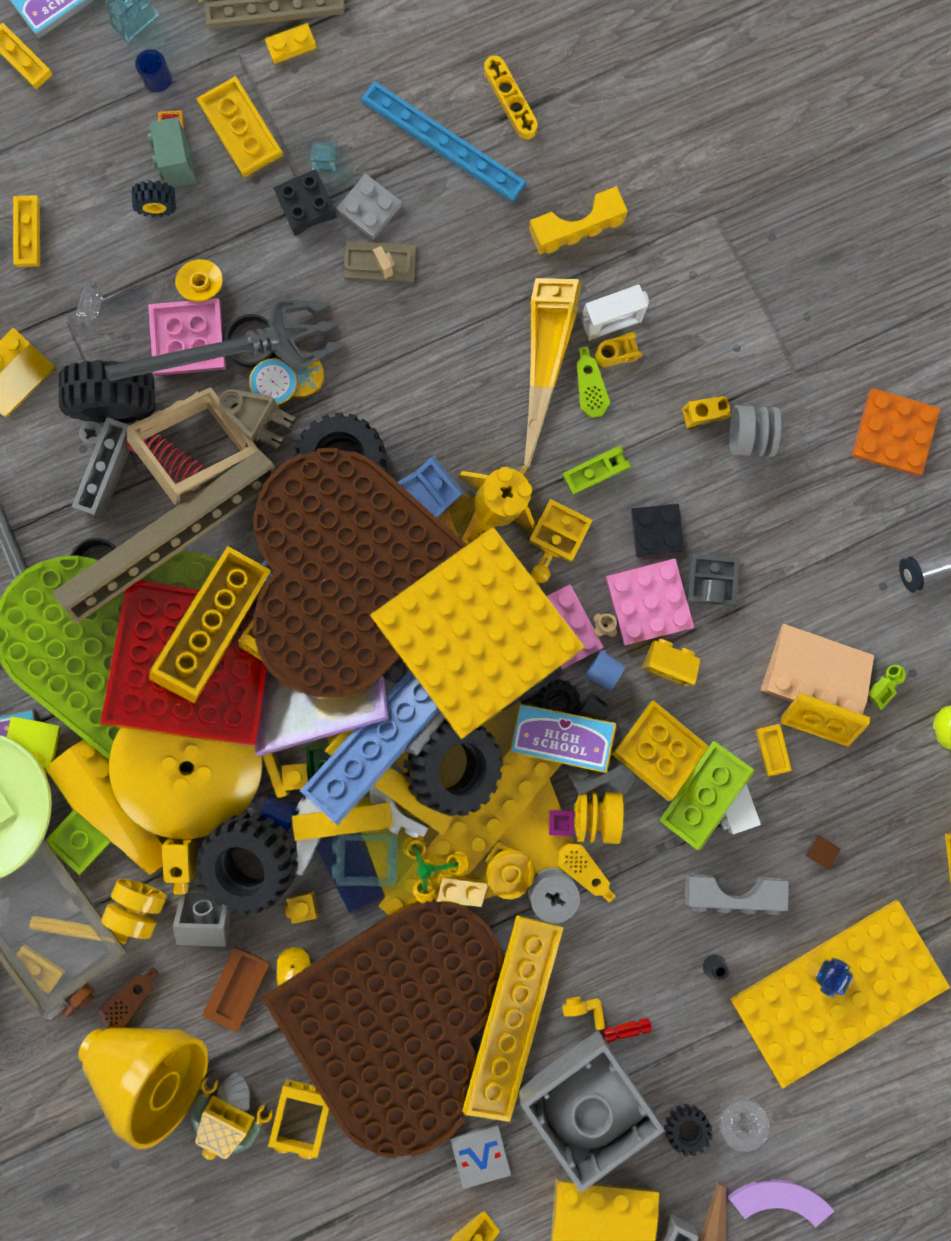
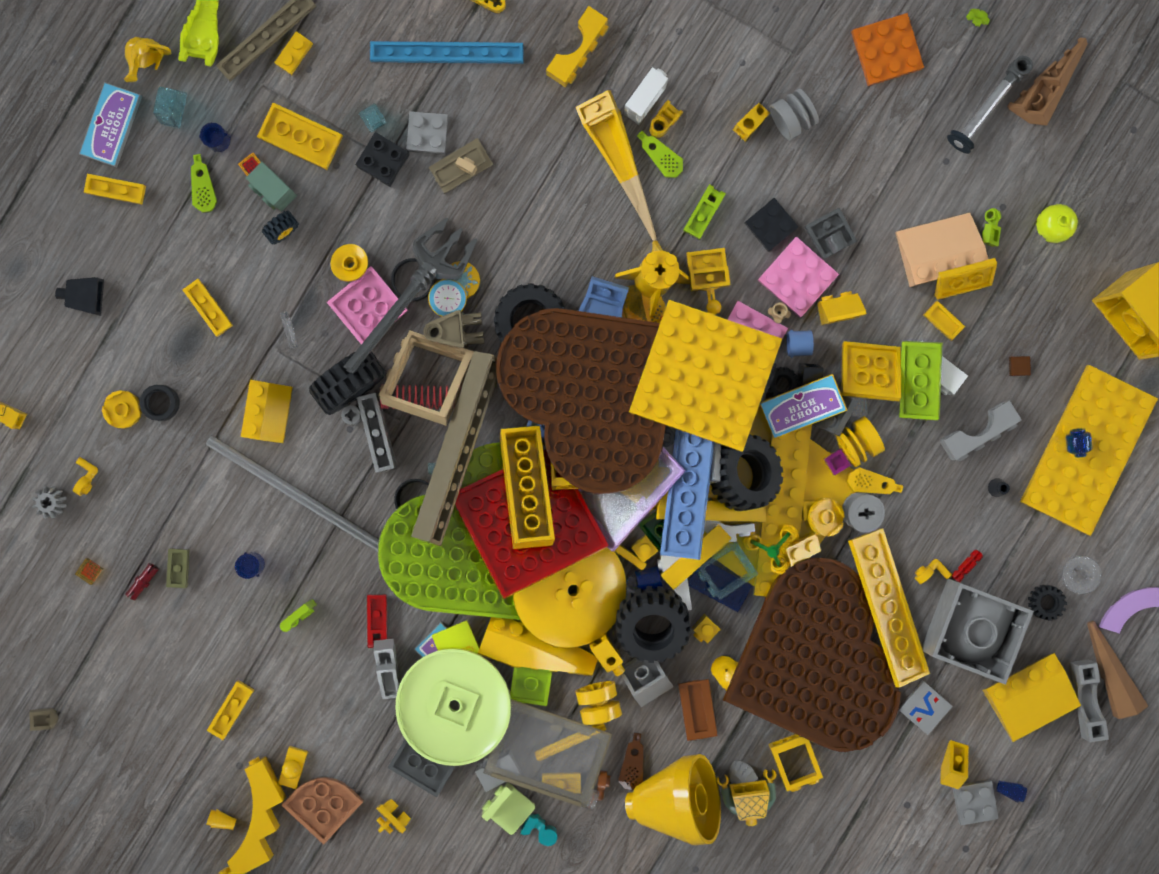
camera: 35 degrees left, 5 degrees up
(105, 107) = (202, 183): none -> lime piece

